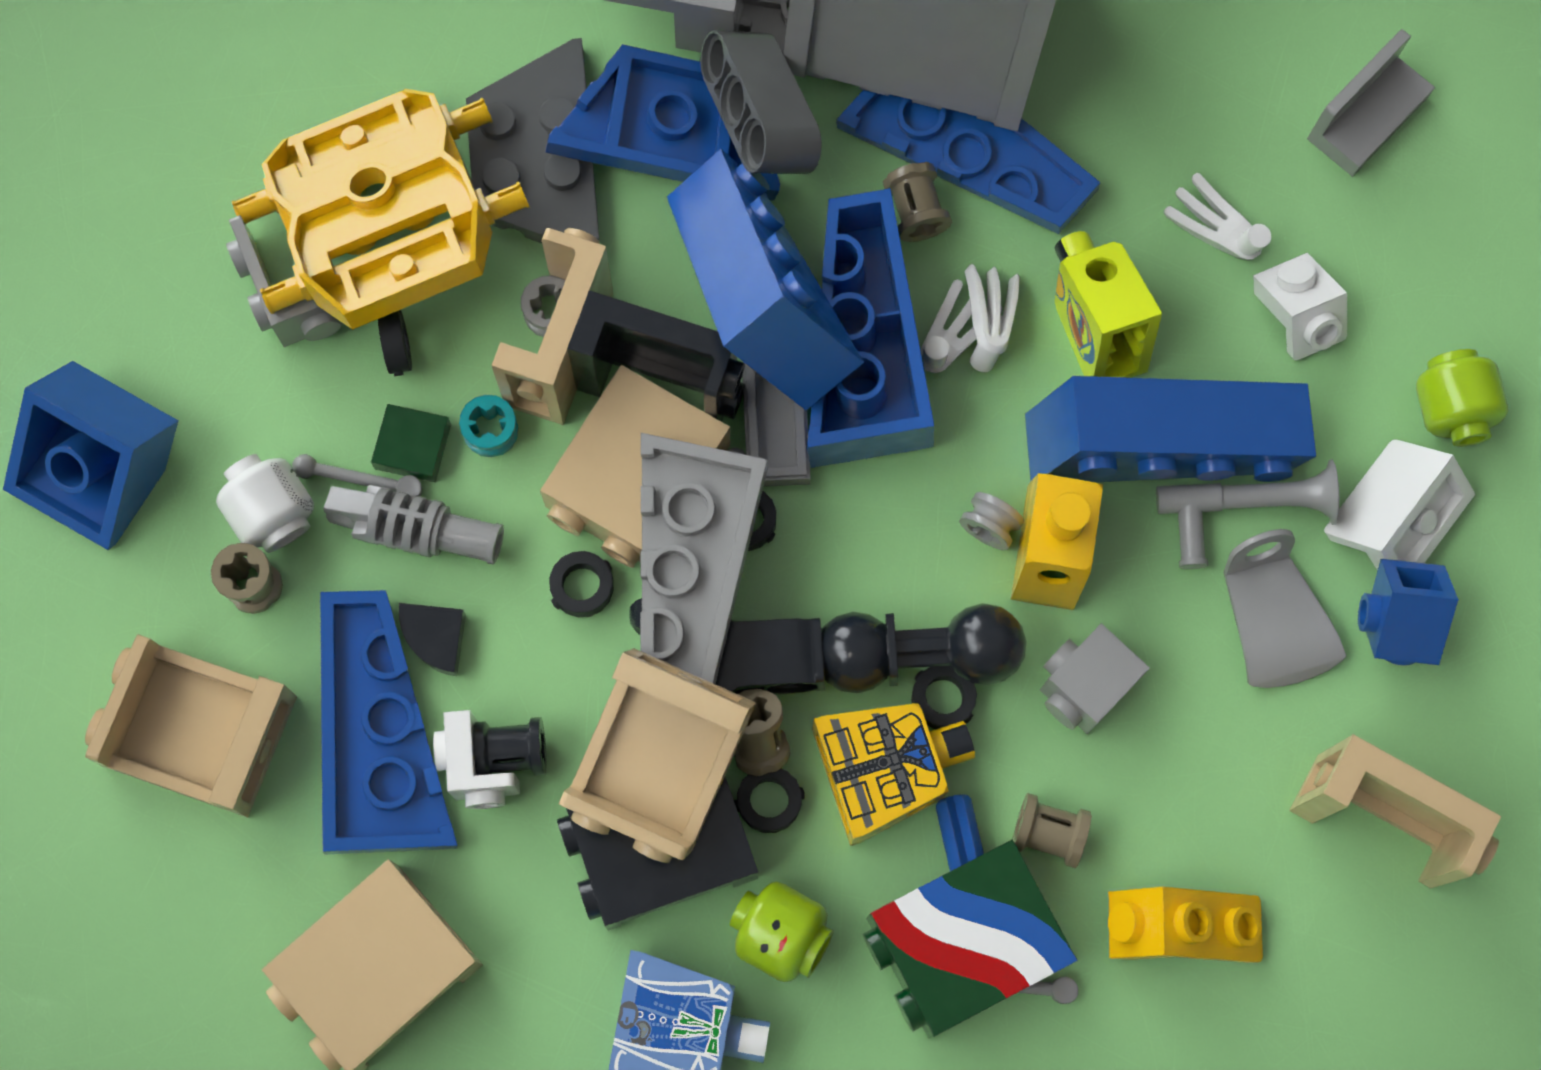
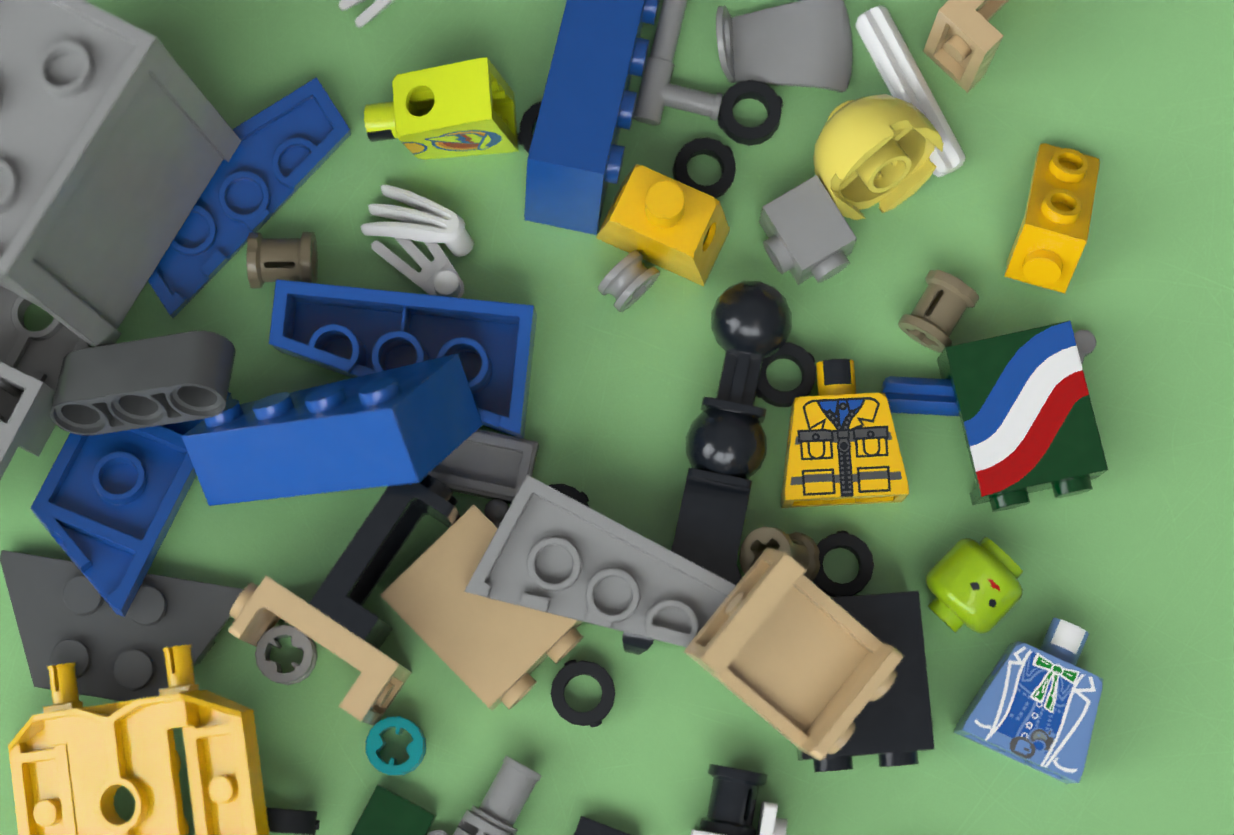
camera: 70 degrees left, 5 degrees up
(1142, 552) = (713, 148): none -> black piece
(1190, 723) = (874, 153): none -> light yellow cylinder
(1214, 581) = (757, 91): none -> black piece
(1270, 749) = (907, 81): none -> white axle

